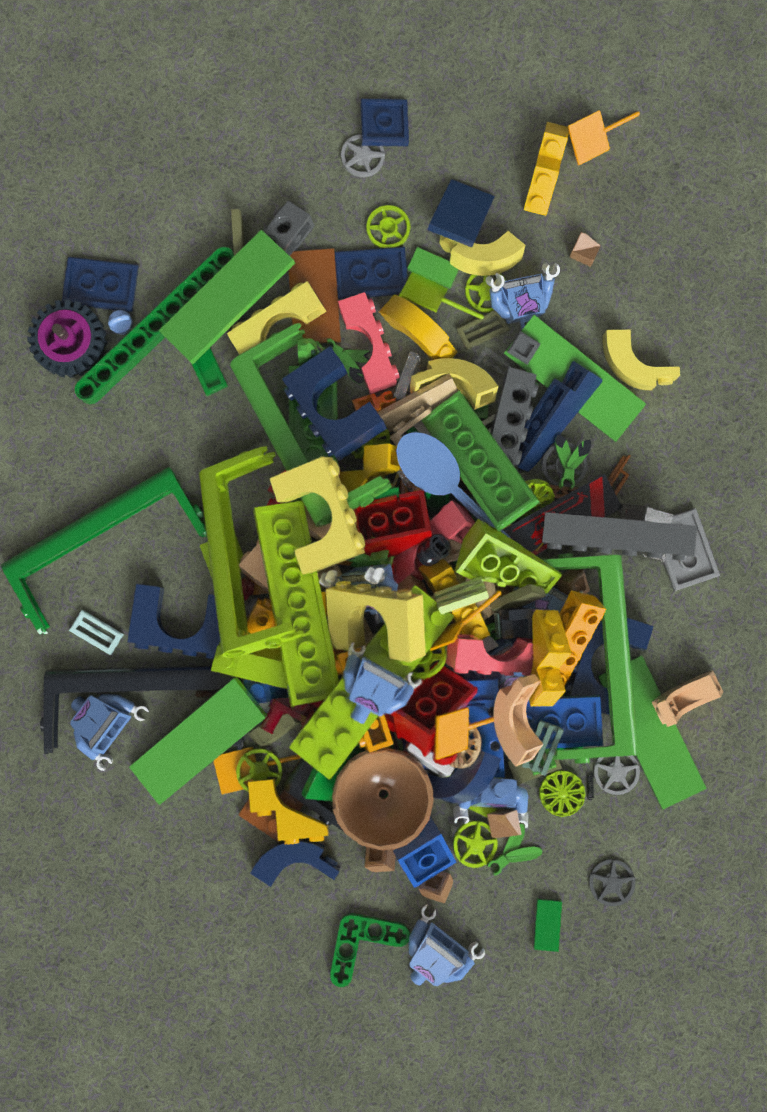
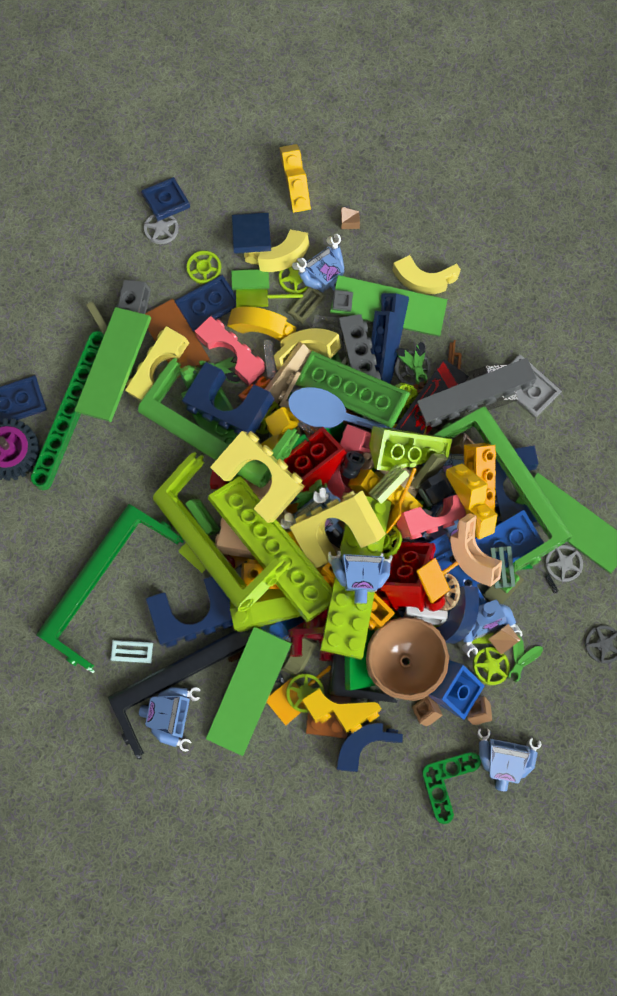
camera: 25 degrees left, 10 degrees down
(120, 322) = (41, 421): light blue tile -> none
(209, 373) = (124, 426): green tile -> none
(243, 521) = (202, 516): none -> bright green tile
(547, 925) = (575, 698): green tile -> none
(562, 793) = (534, 598): lime wheel -> none
(590, 136) = (313, 142): light orange piece -> none
(687, 696) = (585, 484): light nougat arch -> none

